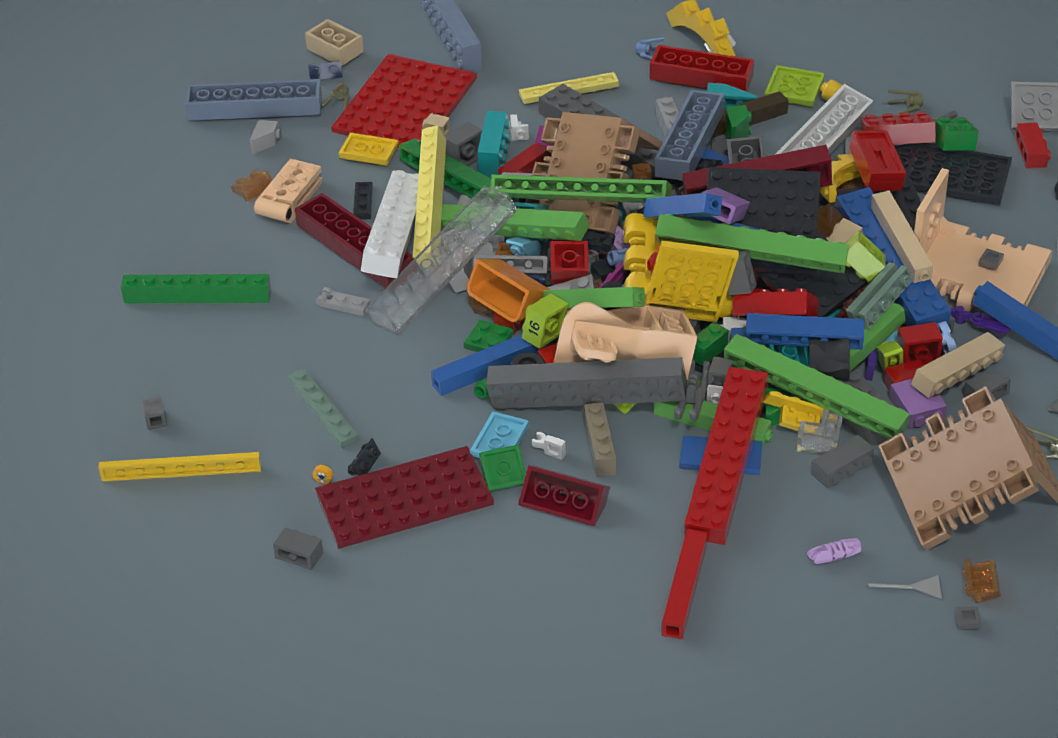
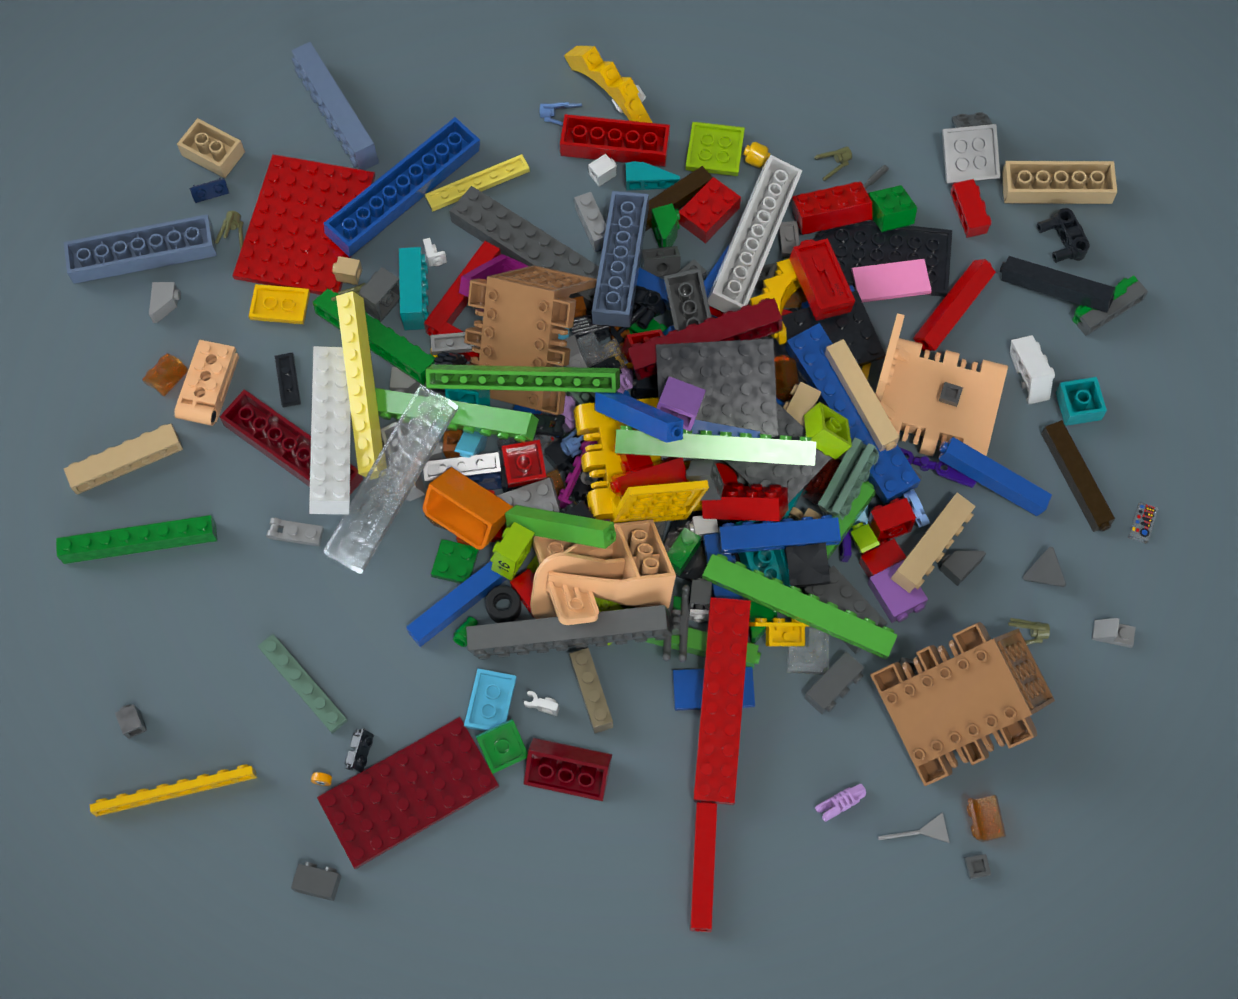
camera: 10 degrees left, 25 degrees up
(199, 235) = (123, 458): none -> tan brick
(499, 78) = (401, 187): none -> blue brick
(683, 86) = (602, 169): none -> white brick
(779, 122) = (709, 210): none -> red brick
(960, 182) = (891, 280): none -> bright pink tile
(1008, 205) = (954, 304): none -> red brick

